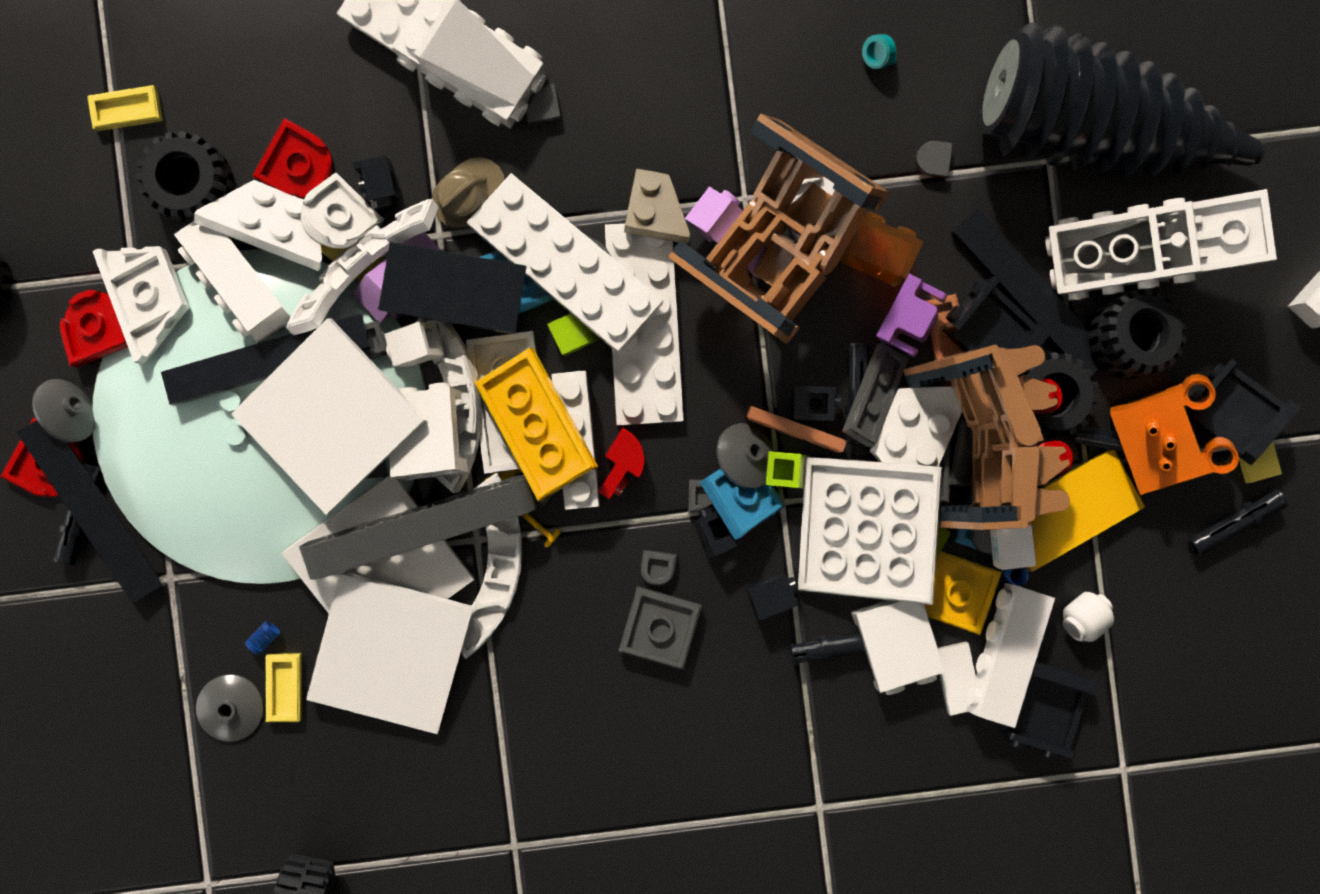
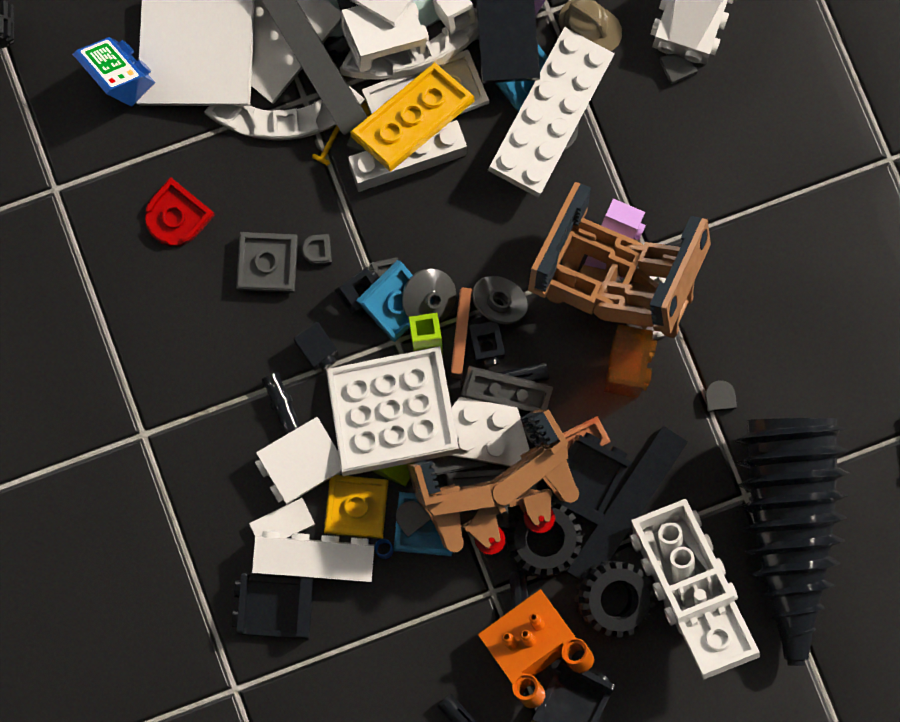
camera: 70 degrees right, 10 degrees down
(395, 754) = (116, 69): none -> slope
(571, 334) = (492, 131): lime brick -> none
(578, 717) = (176, 215): none -> red tile
(628, 456) = (403, 202): red brick -> none
(649, 365) = (488, 201): white plate -> none
(655, 208) = (615, 173): wing -> none
(763, 366) = (500, 299): none -> dark grey dish
(879, 51) = (797, 328): teal tile -> none
(911, 315) = (581, 398): medium lavender panel -> none
(1012, 548) = (409, 530): white brick -> none
(1088, 617) = (361, 619): white head -> none
(1098, 497) = (450, 584): yellow tile -> none

